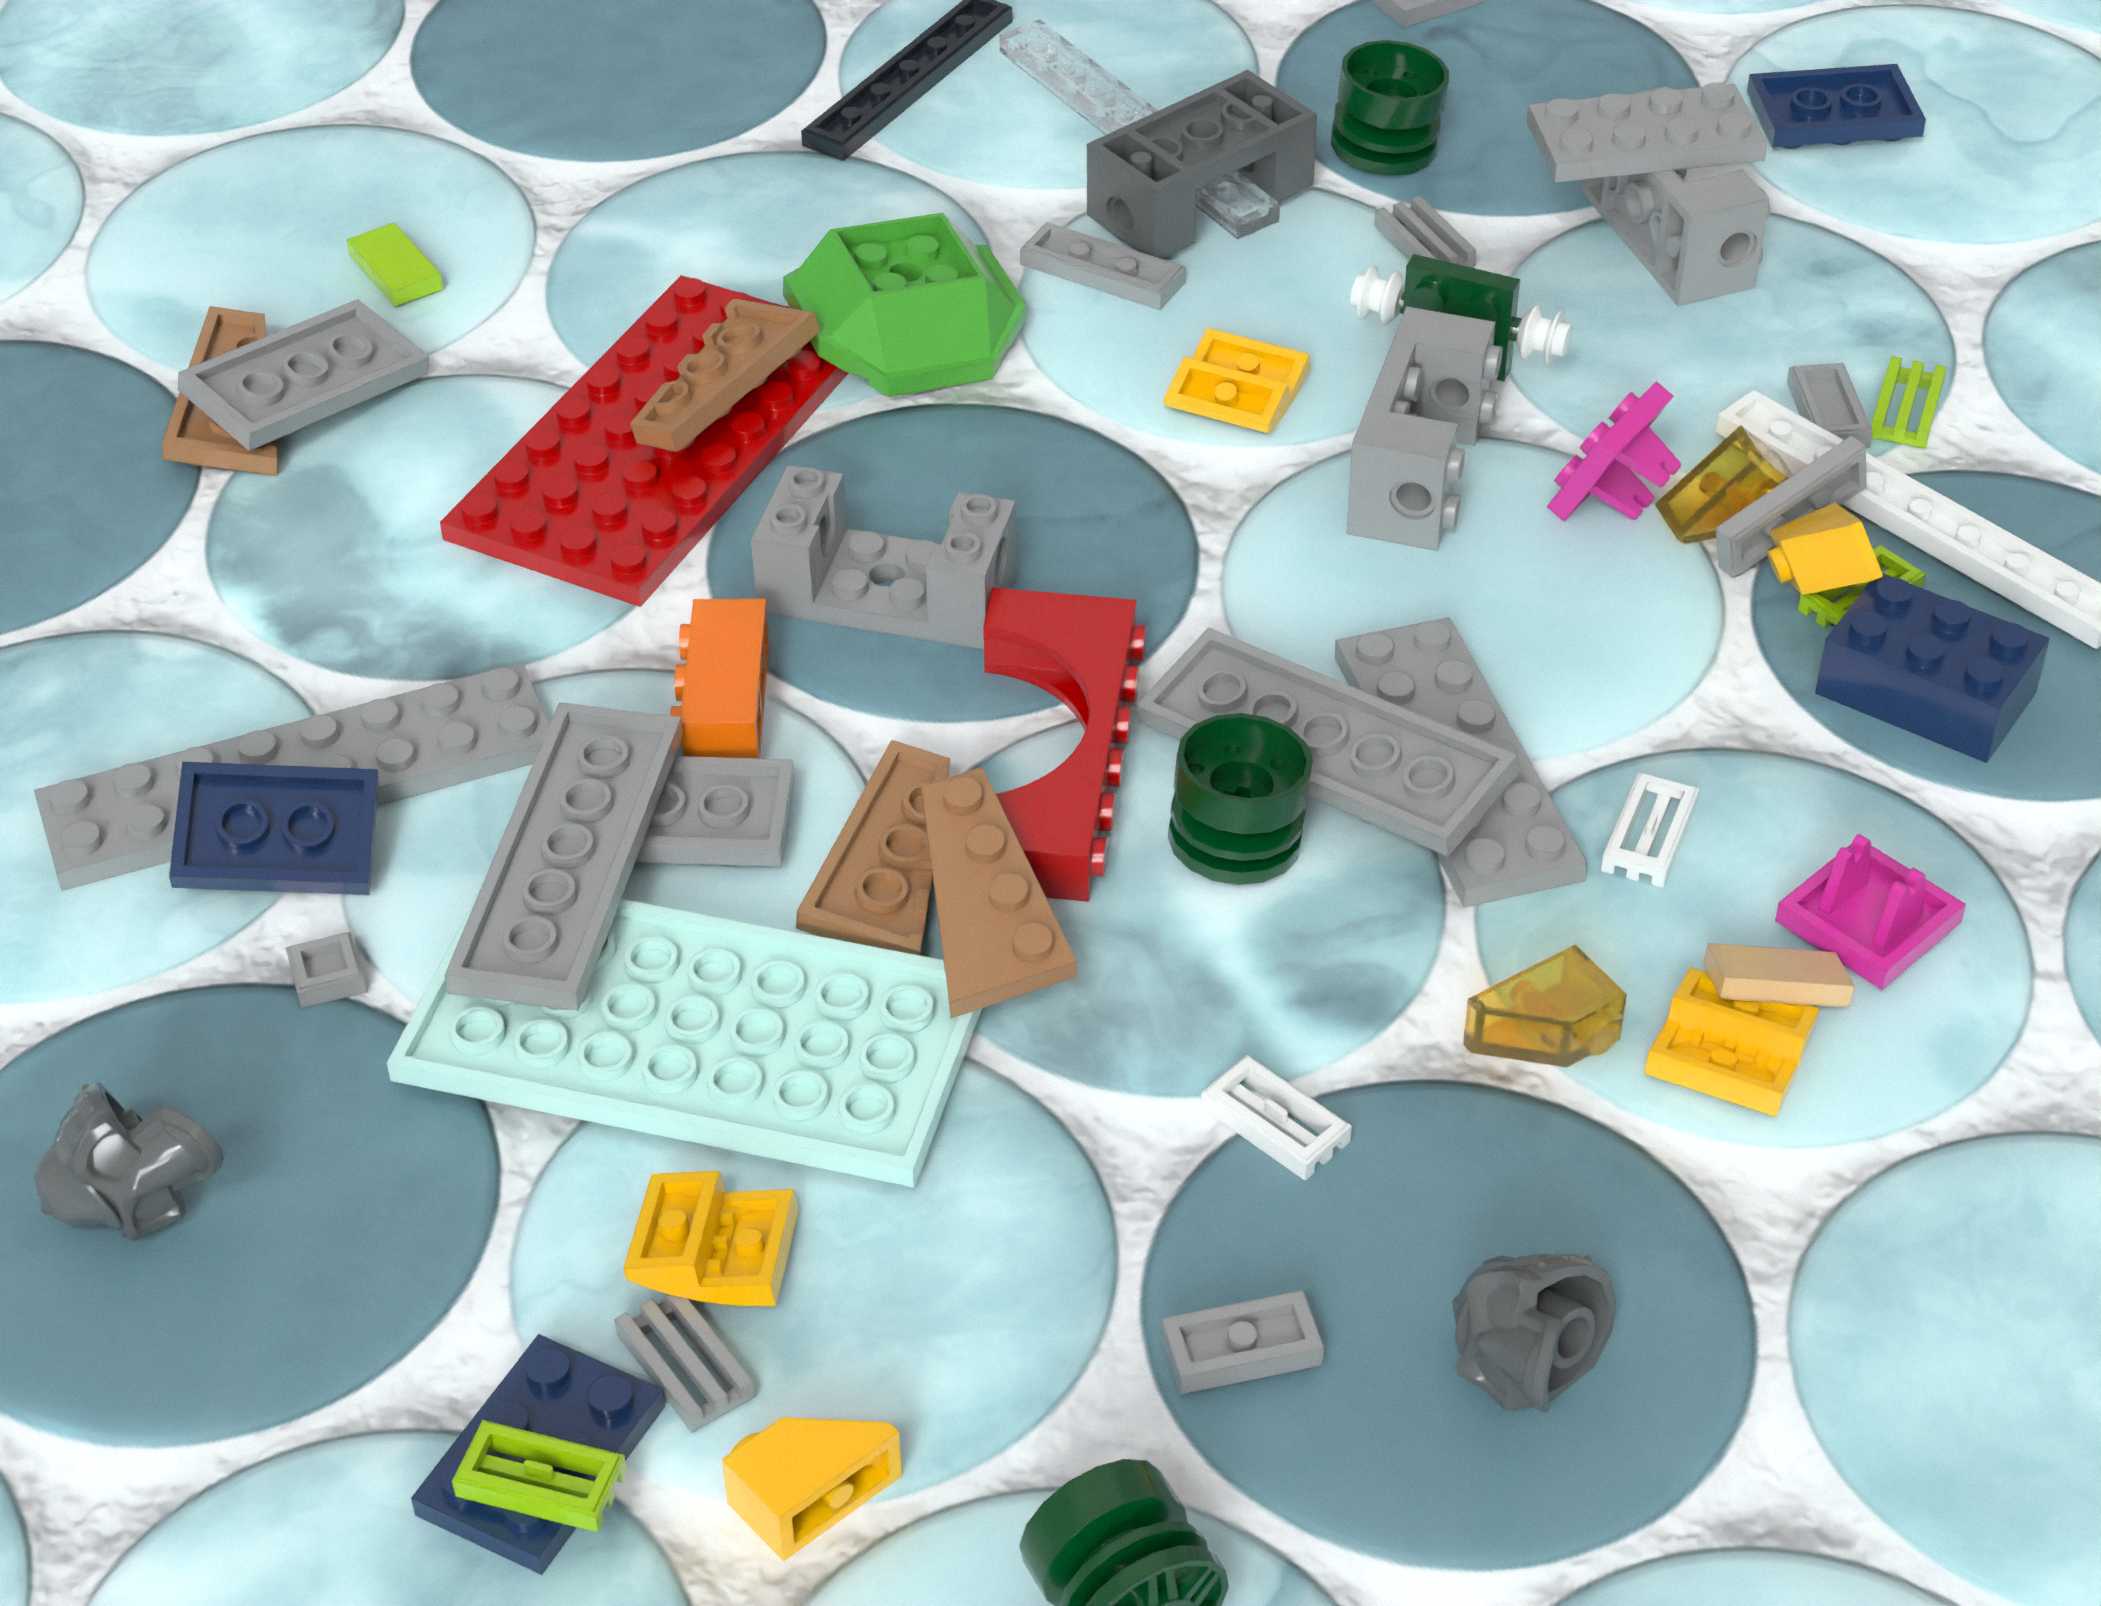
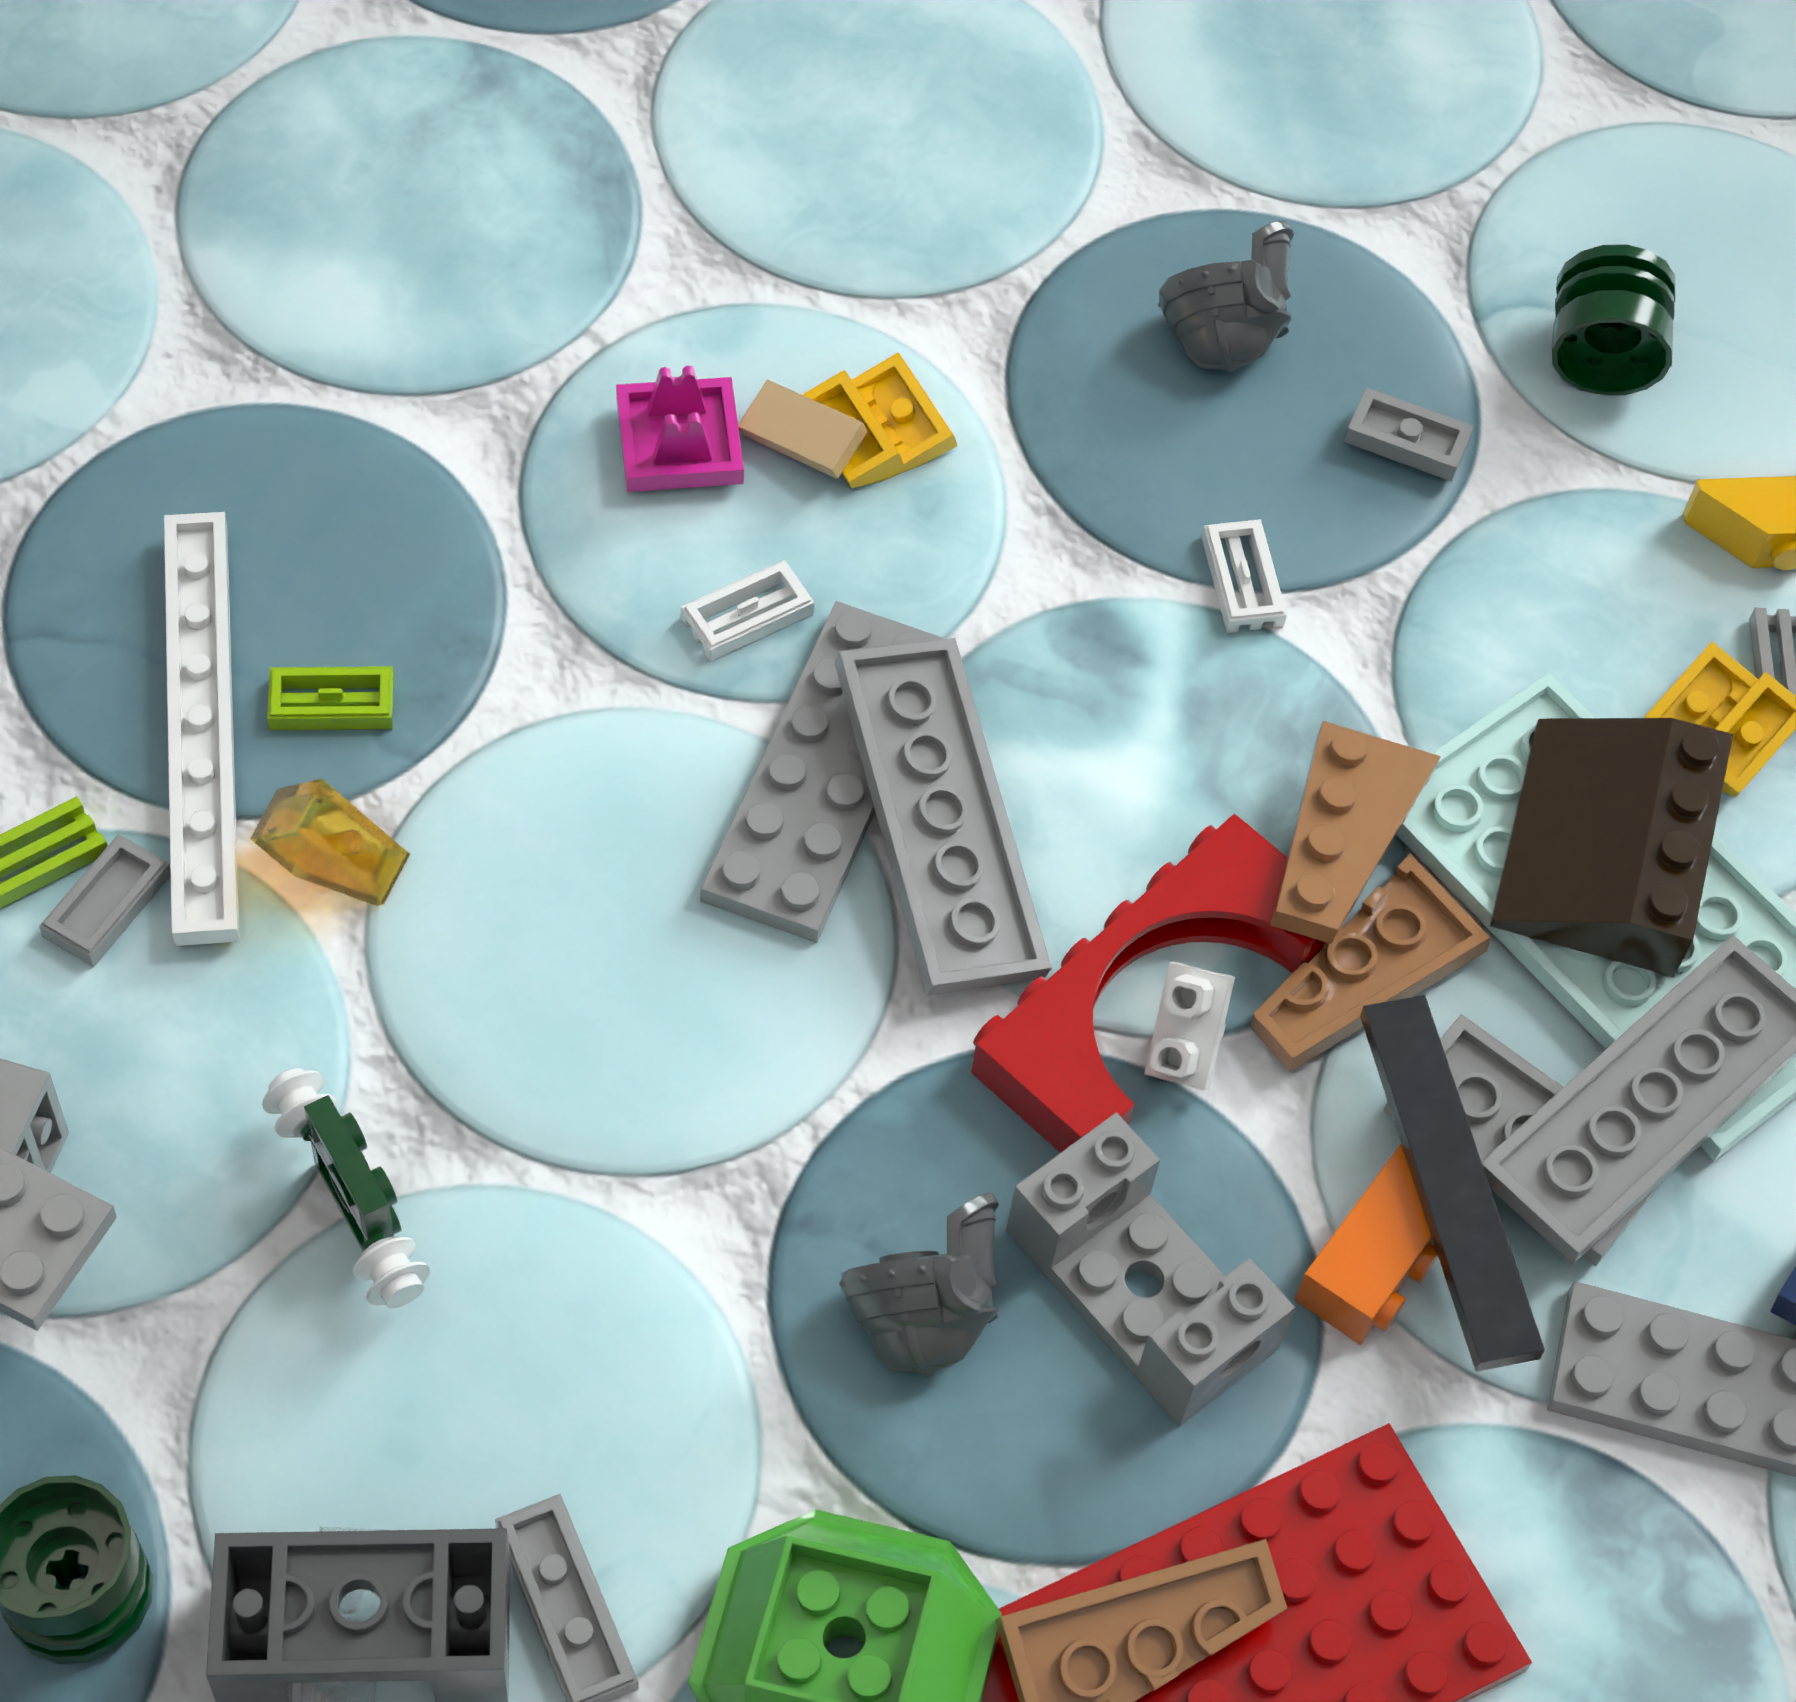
camera: 150 degrees left, 15 degrees up
(701, 695) = (1451, 1184): none -> black tile
(739, 1028) = (1614, 837): none -> dark brown slope
(989, 703) = (1189, 1026): none -> white hips
(1037, 459) = (927, 1305): none -> dark grey head
(1238, 380) = (599, 1315): yellow slope -> none
(1239, 798) = (1070, 787): dark green wheel -> none
(1422, 406) = (614, 1049): light grey plate -> none
(1431, 229) = (219, 1342): light grey tile -> none
(1548, 1013) = (994, 505): clear yellow slope -> none
(1614, 453) = (403, 920): dark pink plate -> none
(1823, 551) = (359, 697): yellow slope -> none
(1825, 481) = (285, 762): light grey tile -> none
(1932, 666) = (392, 569): dark blue brick -> none

